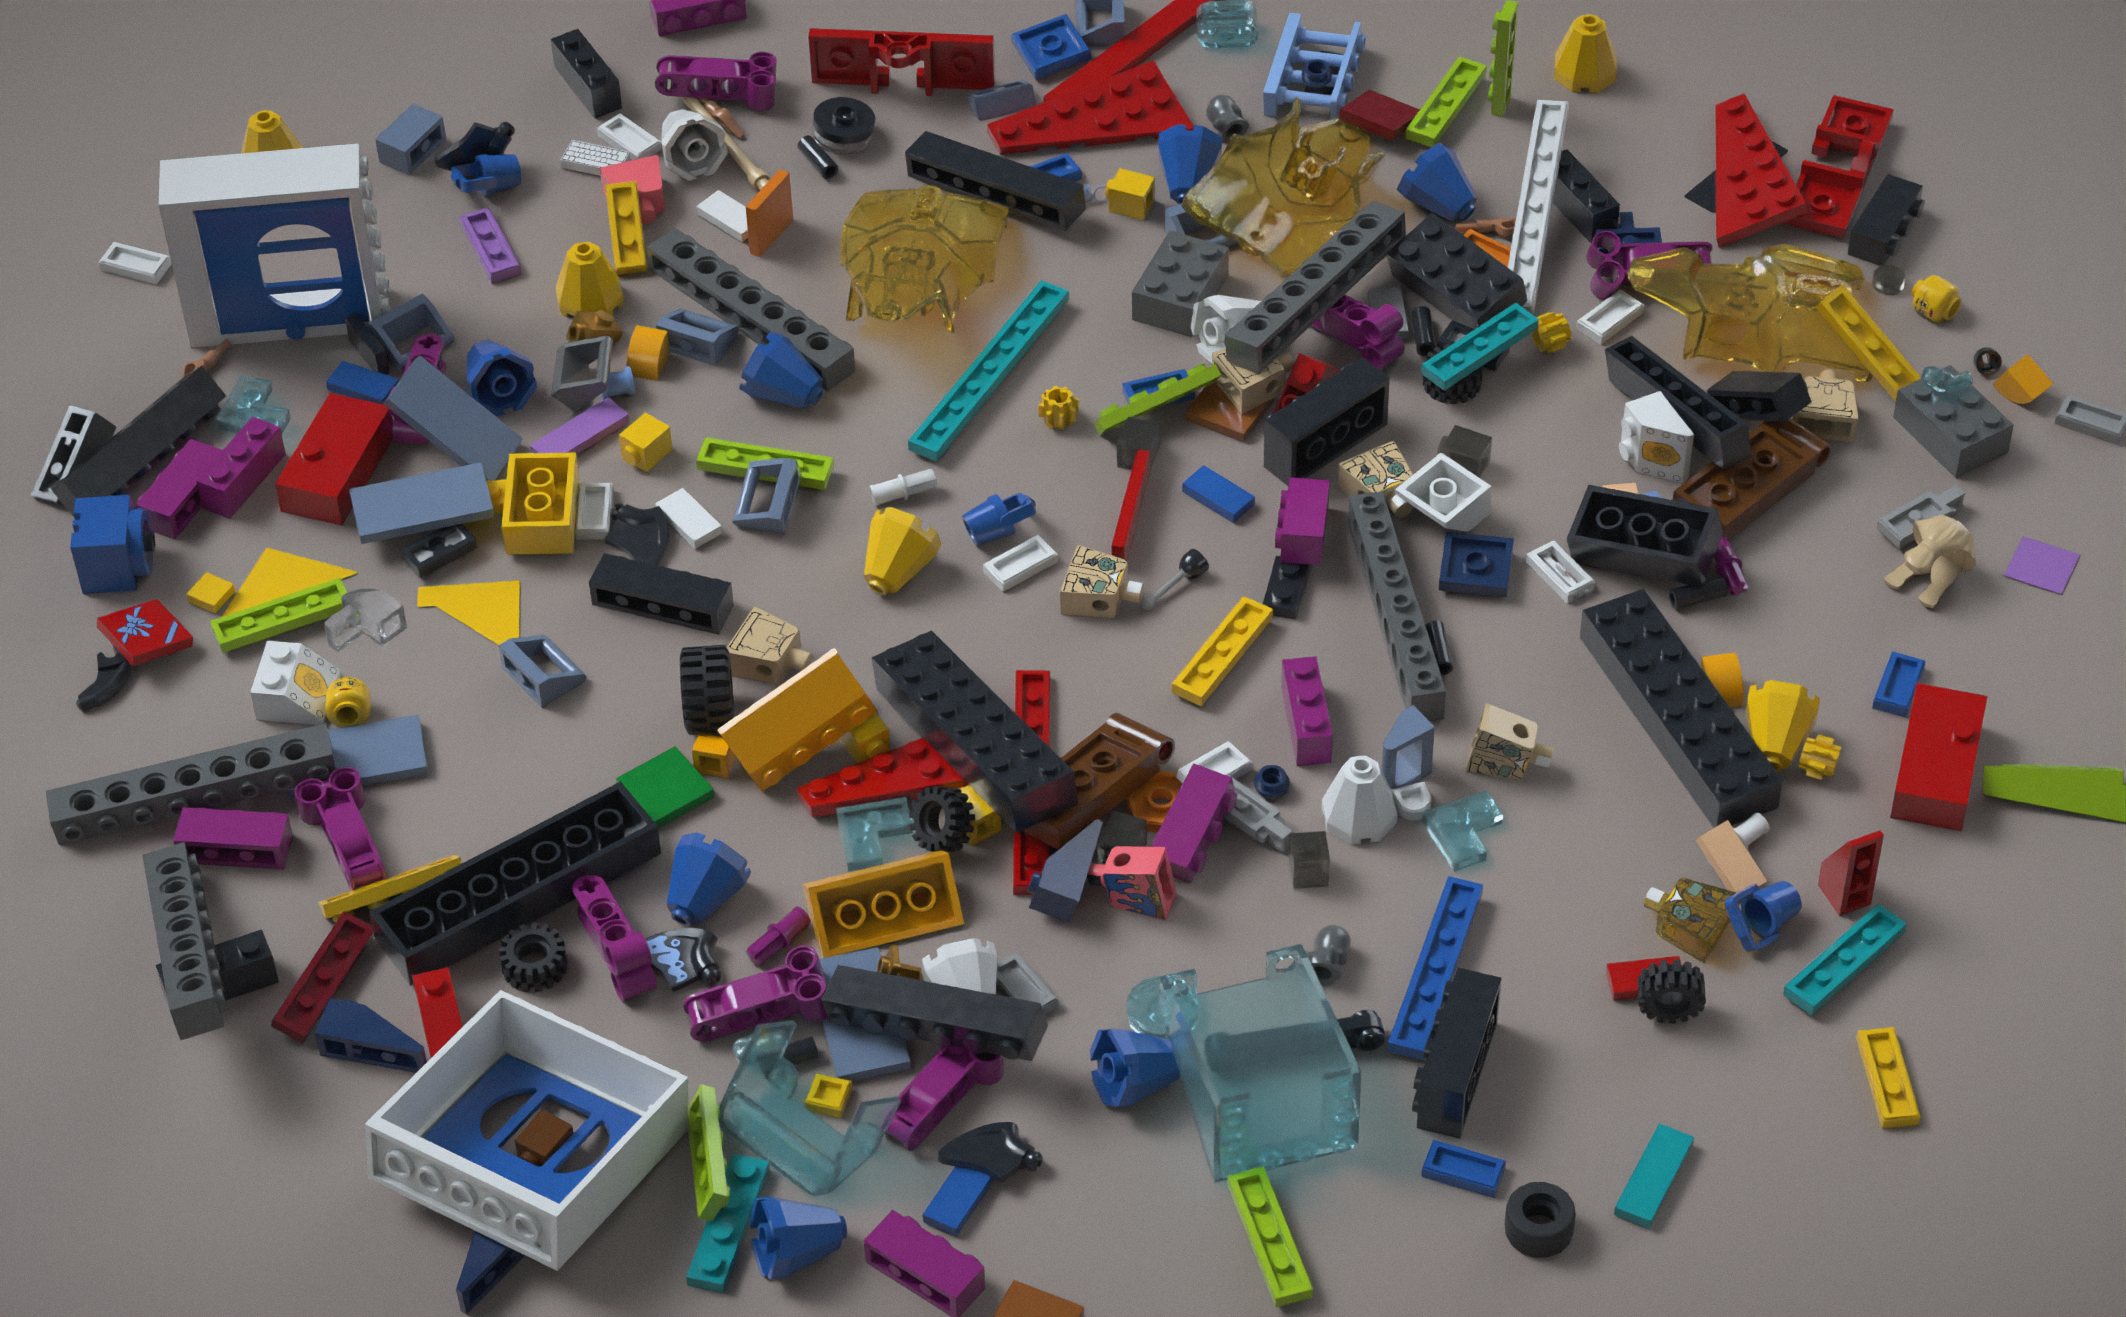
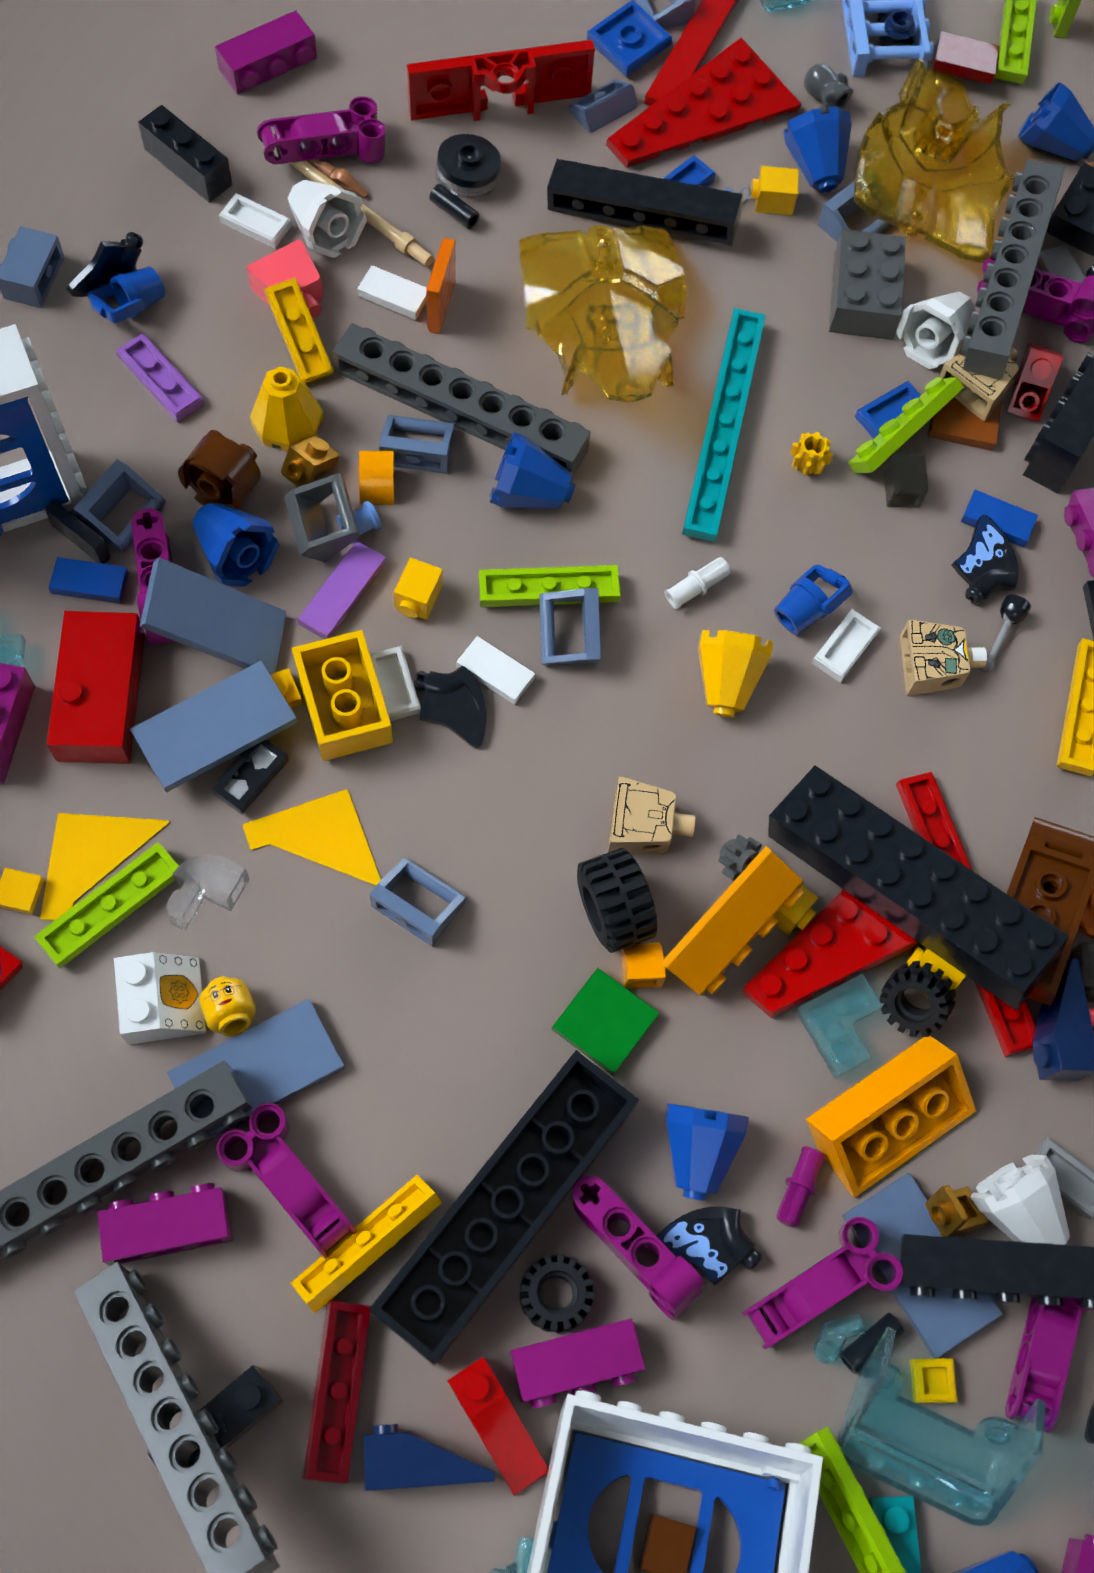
camera: 25 degrees left, 20 degrees up
(508, 317) = (220, 471): none -> reddish brown brick
(557, 994) = (577, 1362): none -> magenta brick
(591, 157) = (229, 251): white tile -> none
(661, 593) = (508, 775): black brick -> none
(1131, 505) = (931, 558): red tile -> none
(1185, 524) = (987, 562): none -> black arm

